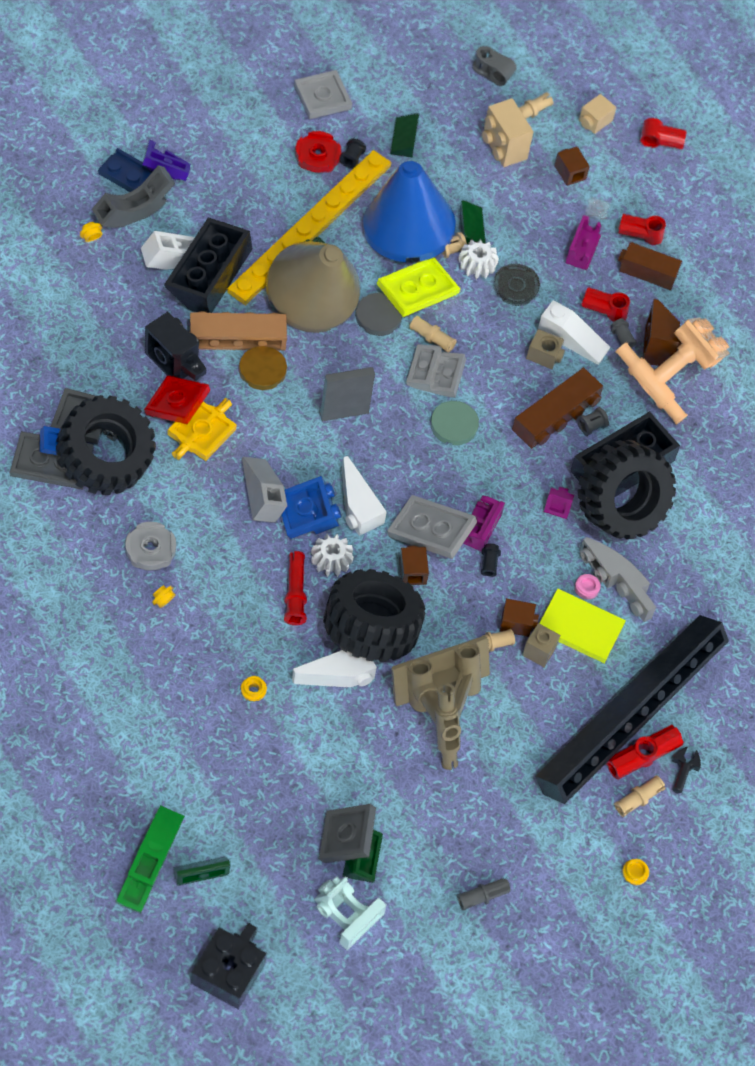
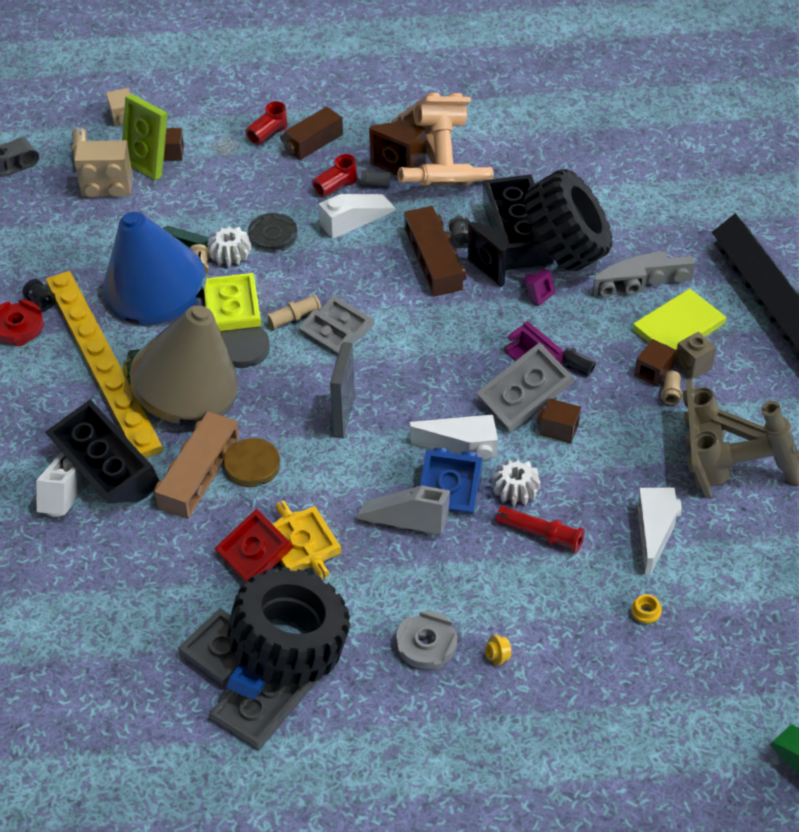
camera: 55 degrees left, 10 degrees down
(173, 348) = (194, 522): black hinge -> none
(374, 615) = (620, 462): black tyre -> none
(404, 135) = (44, 248): dark green slope -> none
(454, 422) = (405, 333): sand green tile -> none
(545, 341) = (362, 235): dark tan brick -> none
(554, 142) = (145, 135): none -> lime plate
(570, 447) = (487, 251): none -> black slope
(584, 244) = (258, 170): magenta hinge -> none
(587, 586) = (638, 303): bright pink tile -> none
(657, 134) = (172, 79): red piece -> none

